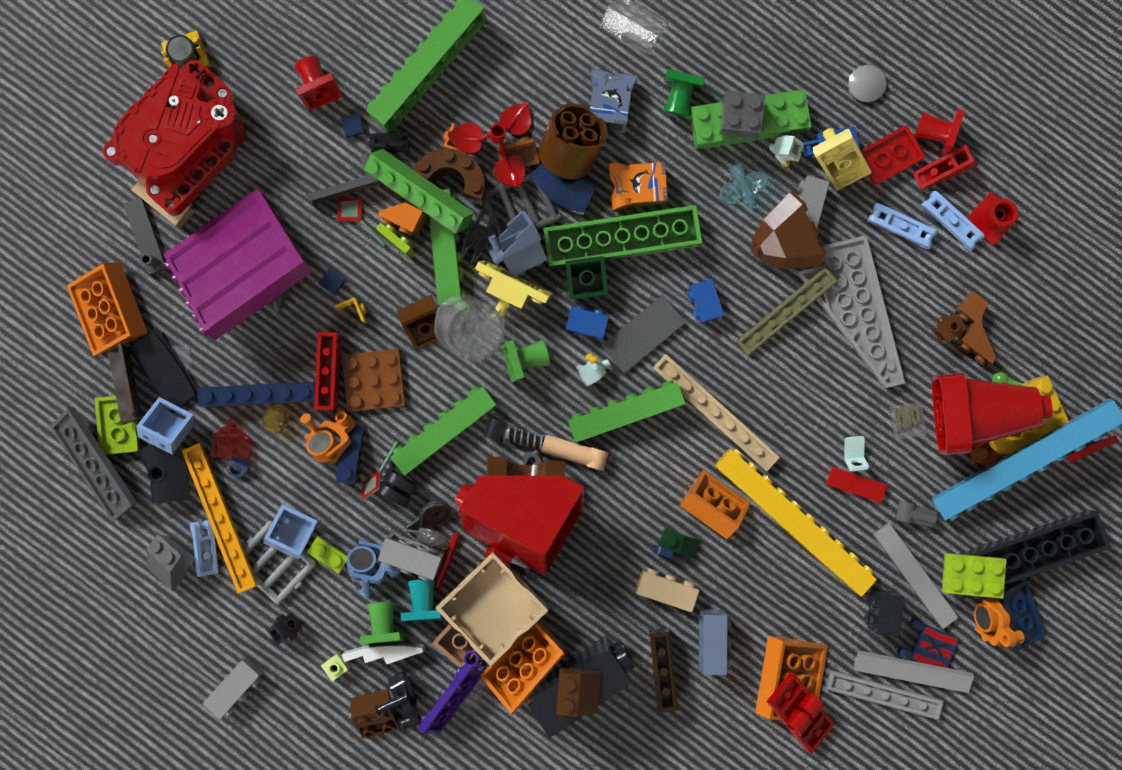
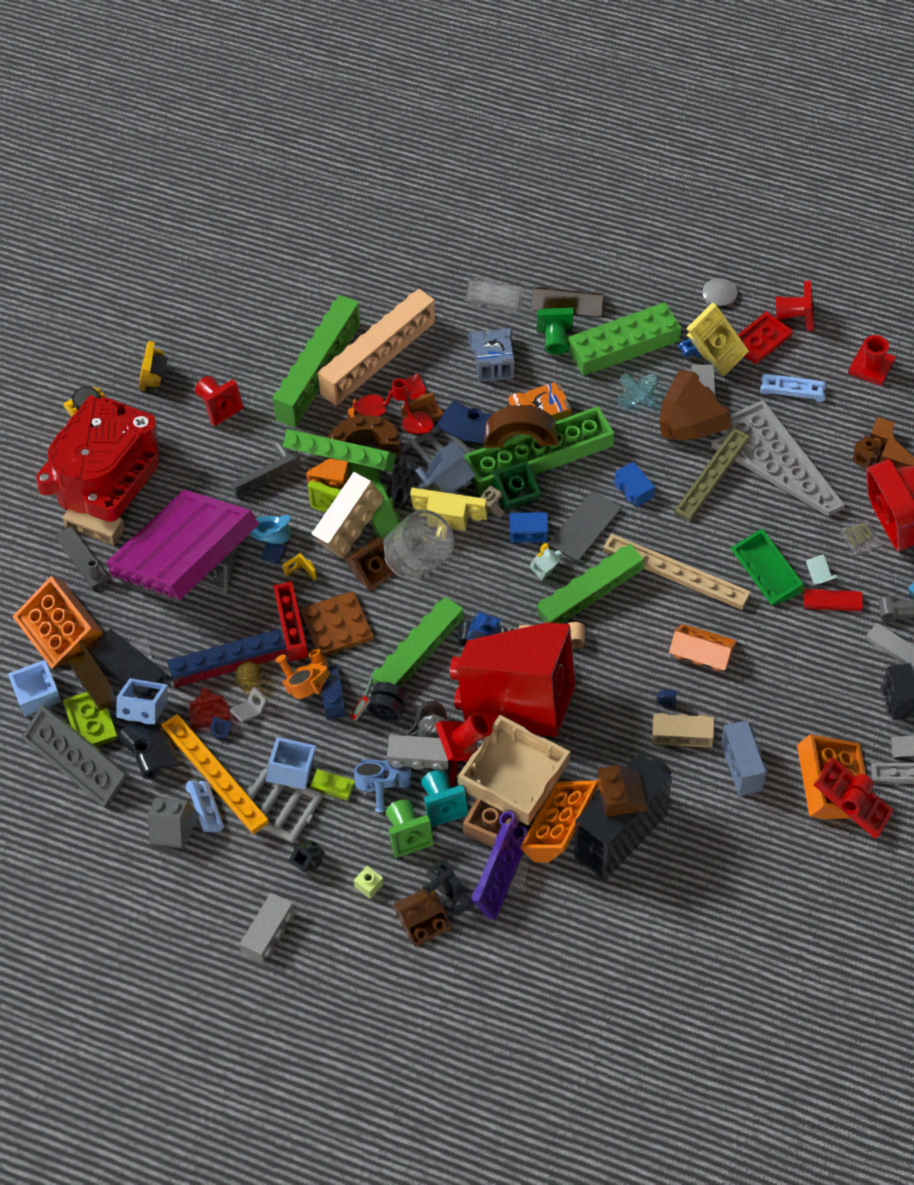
camera: 15 degrees left, 30 degrees down
(71, 379) = (34, 687): none -> light blue piece
(258, 26) = (153, 367): none -> yellow piece
(267, 454) = (249, 709): none -> light grey bracket
(333, 256) = (272, 529): none -> dark azure piece
(351, 210) = (276, 493): piece -> none
(352, 125) = (259, 427): dark blue tile -> none
(389, 142) = (306, 426): black hinge -> none
(390, 651) = (421, 853): white slope -> none
(409, 272) = (348, 515): none -> tan brick
(452, 563) = (461, 737): none -> red plant
(493, 62) = (376, 347): none -> light nougat brick
(506, 444) = (483, 626): none -> blue brick
(524, 358) = (471, 568): bright green plant -> none
(558, 287) = (492, 496): none -> dark tan bracket
(572, 141) = (469, 381): reddish brown brick -> none
(608, 216) = (520, 420): none -> reddish brown brick
(663, 670) = (703, 798): dark brown brick -> none
(679, 543) = (686, 689): dark green slope -> none
(706, 51) = (582, 302): none -> dark brown panel
(742, 114) = (615, 327): dark grey brick -> none
(787, 149) = (666, 350): light aqua piece -> none
(798, 525) = (786, 642): yellow brick -> none
(805, 433) = (767, 568): none -> green slope
(946, 167) = (815, 334): red slope -> none
(952, 220) = (837, 373): light blue plate -> none

